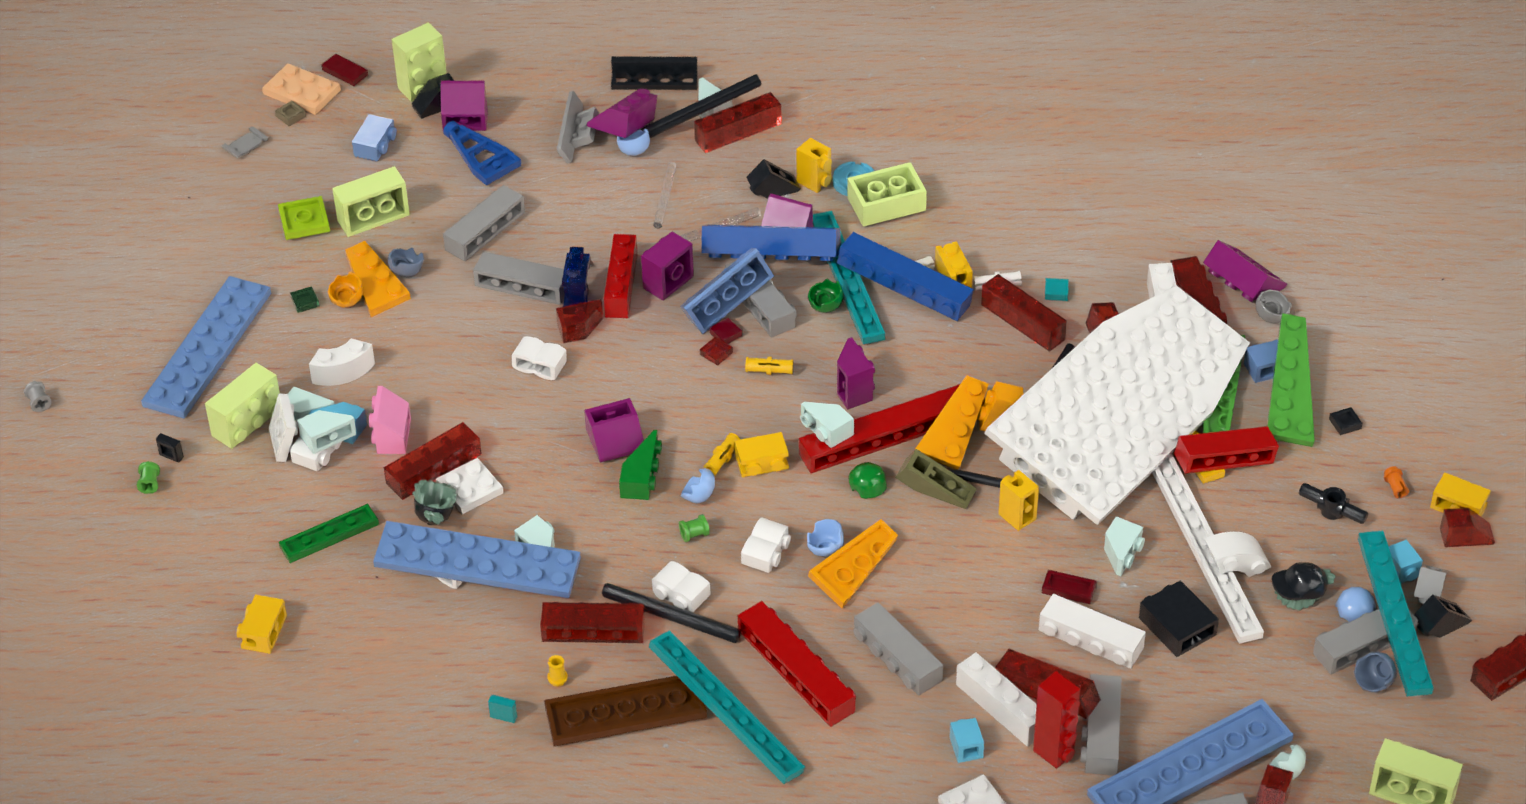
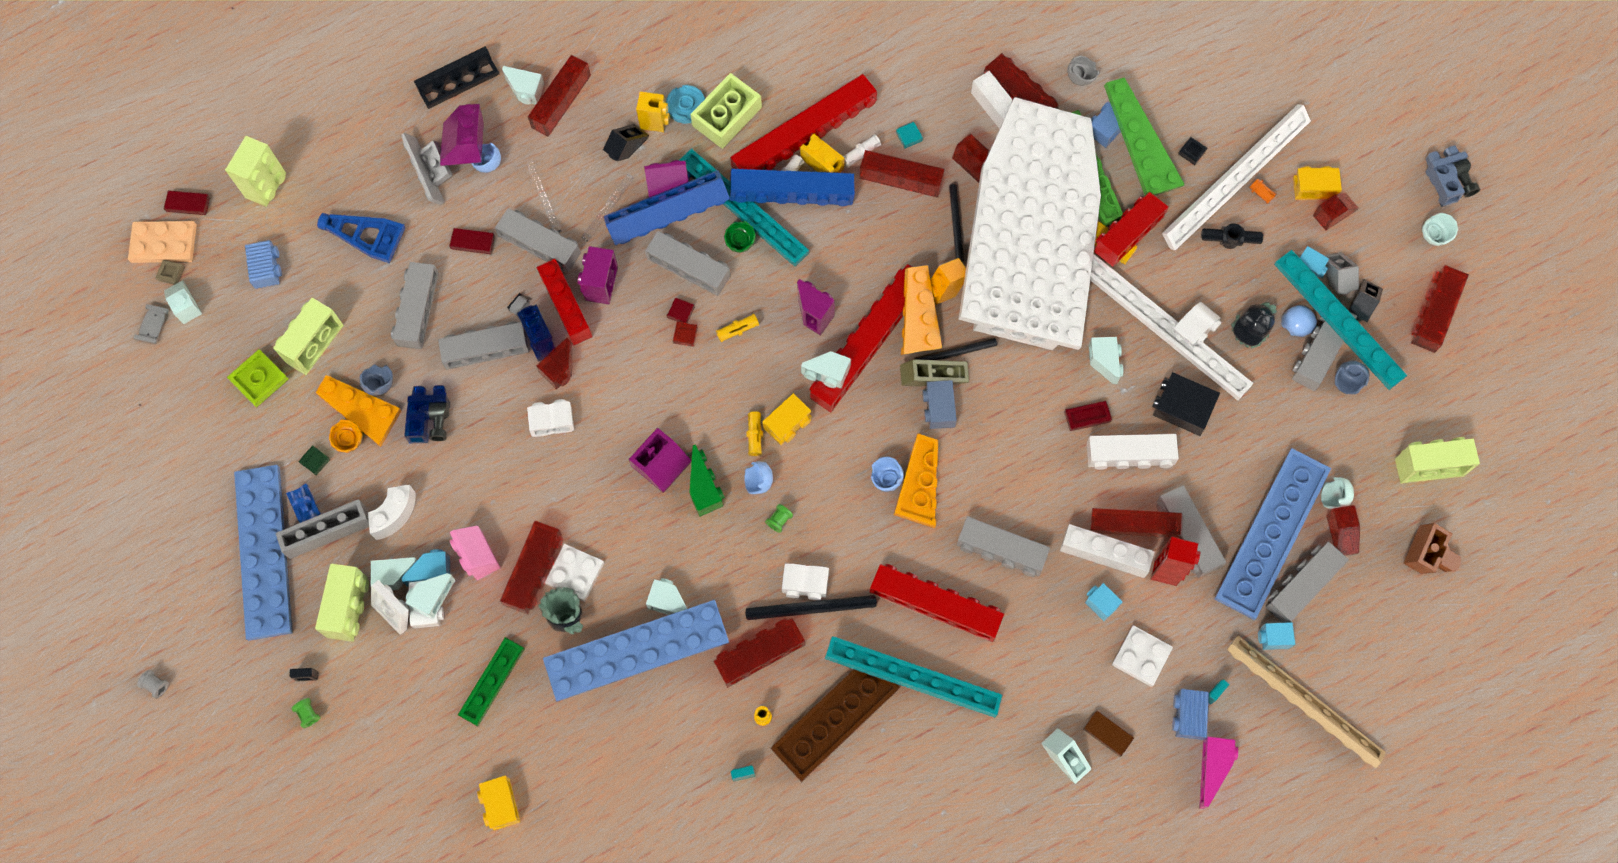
camera: 30 degrees left, 25 degrees up
(269, 326) = (303, 503): none -> blue hips
(270, 346) = (323, 529): none -> light grey brick
(282, 138) = (182, 302): none -> light aqua slope
(429, 99) = (288, 194): black slope -> none
(430, 299) = (425, 408): none -> clear blue hips
(464, 103) = (321, 194): magenta slope -> none
(573, 199) = (472, 241): none -> dark red tile
(631, 216) = (537, 240): none -> light grey brick
(703, 105) = (524, 97): black axle -> none
(727, 290) = (664, 277): medium blue slope -> none
(765, 545) = (844, 504): white brick -> none
(868, 480) = (880, 398): green hair -> none
(922, 508) = (940, 404): none -> sand blue brick
(973, 237) = (817, 120): none -> red brick
(1018, 500) = (1010, 361): yellow brick -> none
(1241, 271) = (1040, 48): magenta slope -> none
(1375, 457) = (1236, 177): none -> white plate

